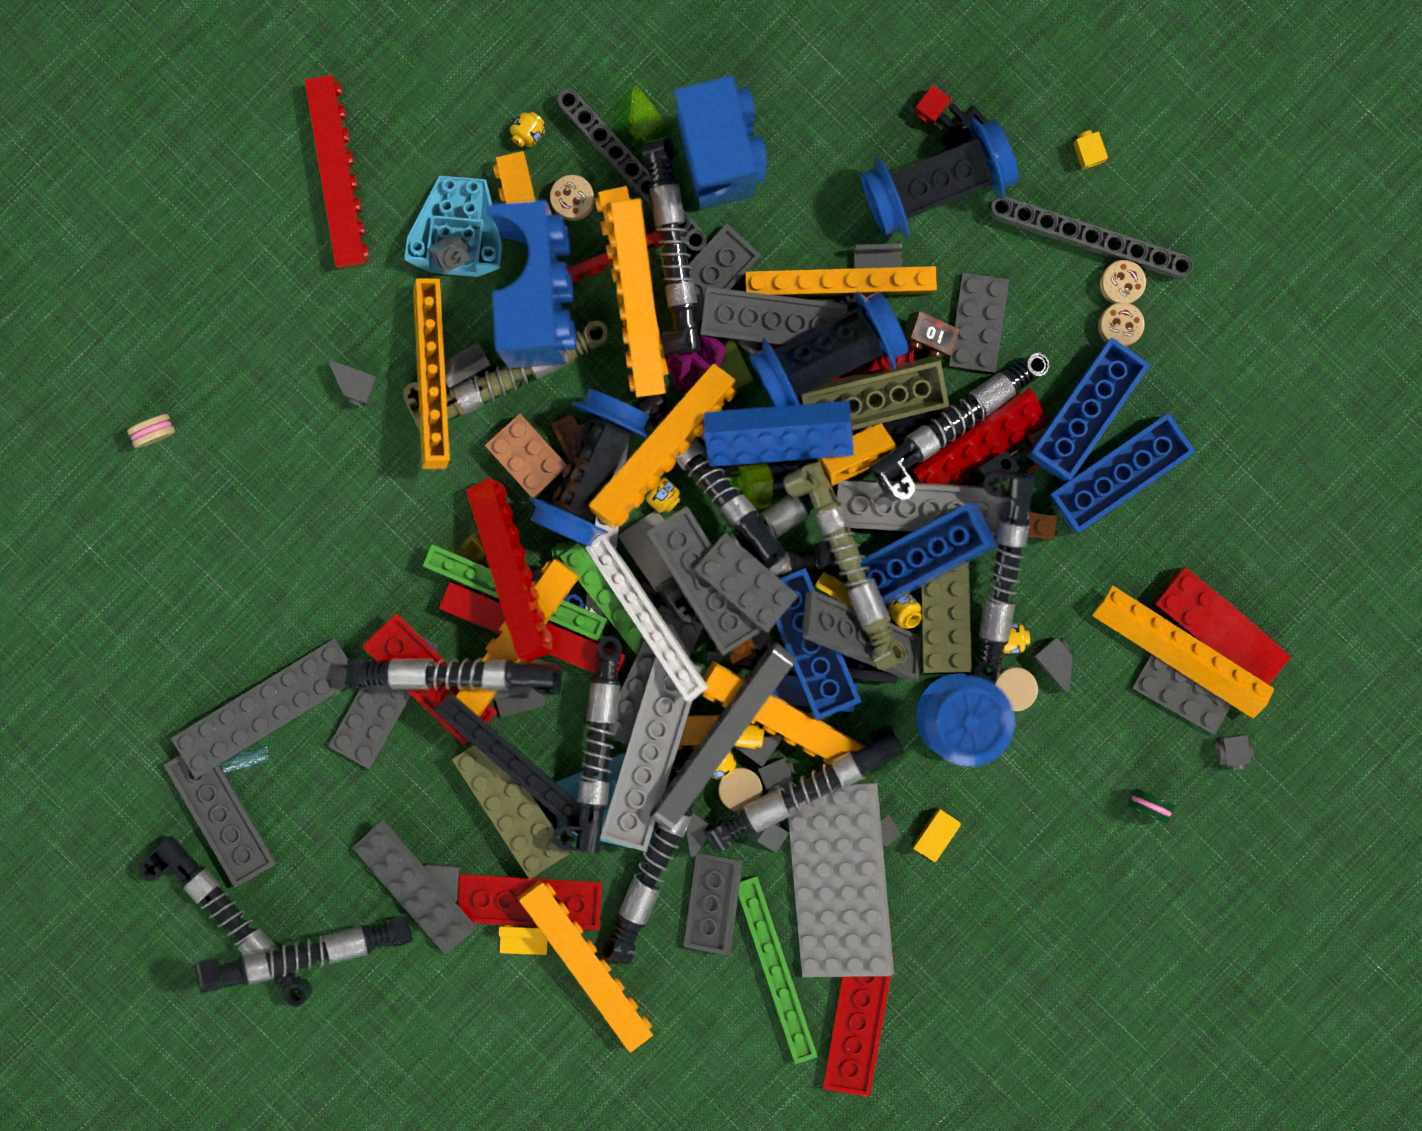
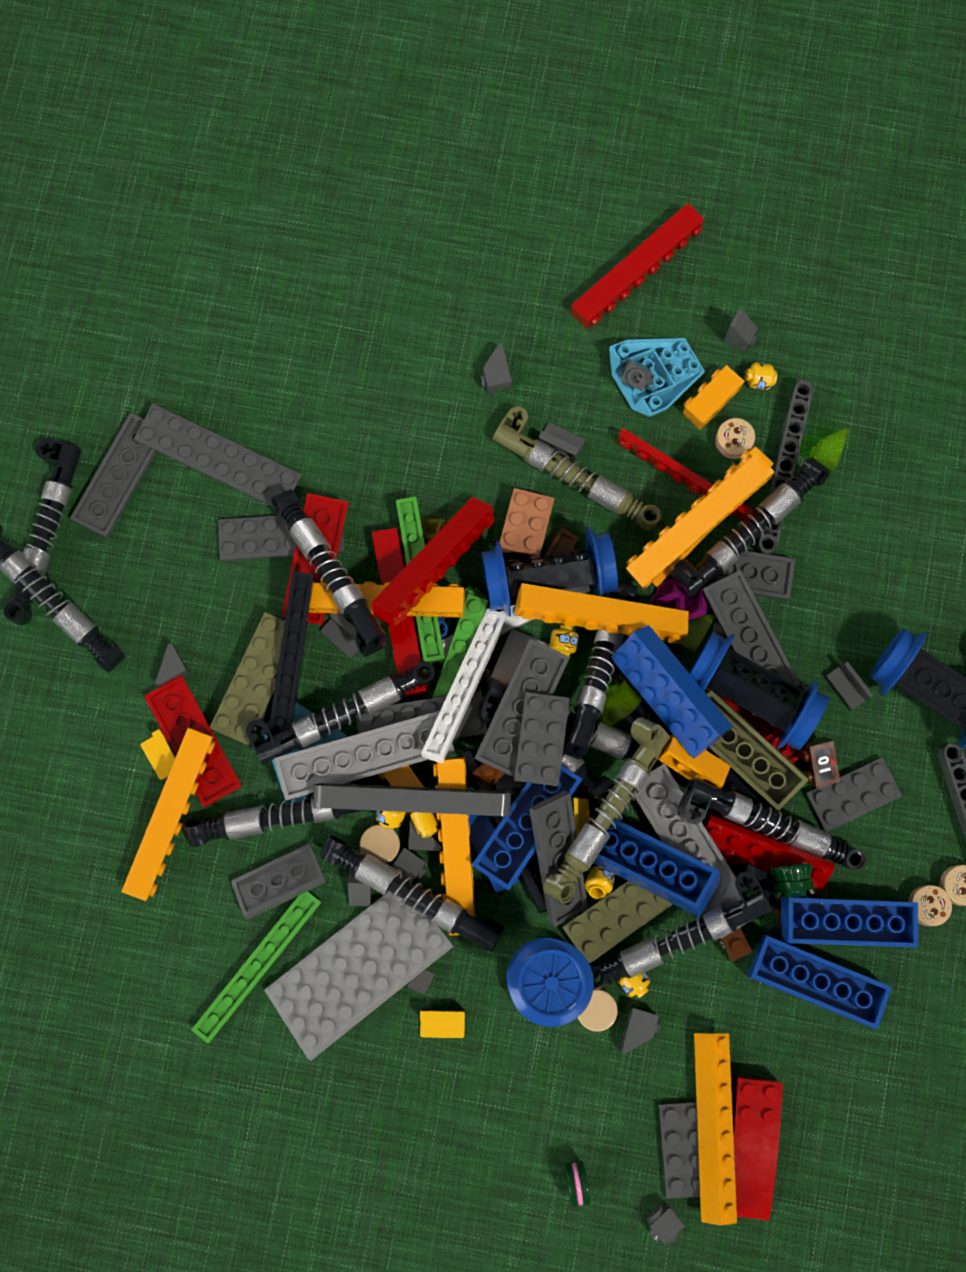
camera: 55 degrees right, 10 degrees down
(151, 431) = (368, 254): tan head -> none
(246, 760) = (171, 468): clear light blue pin -> none
(414, 887) = (150, 648): dark grey plate -> none
(431, 374) = (539, 416): light orange brick -> none
(472, 118) = (741, 332): none -> dark grey slope
(529, 313) = (639, 448): blue piece -> none
(695, 833) = (322, 832): dark grey slope -> none
(715, 134) = (856, 506): blue piece -> none
(843, 282) = (810, 668): light orange brick -> none
(856, 1034) = (245, 1064): red plate -> none
(1019, 438) = (792, 880): none -> dark green hair

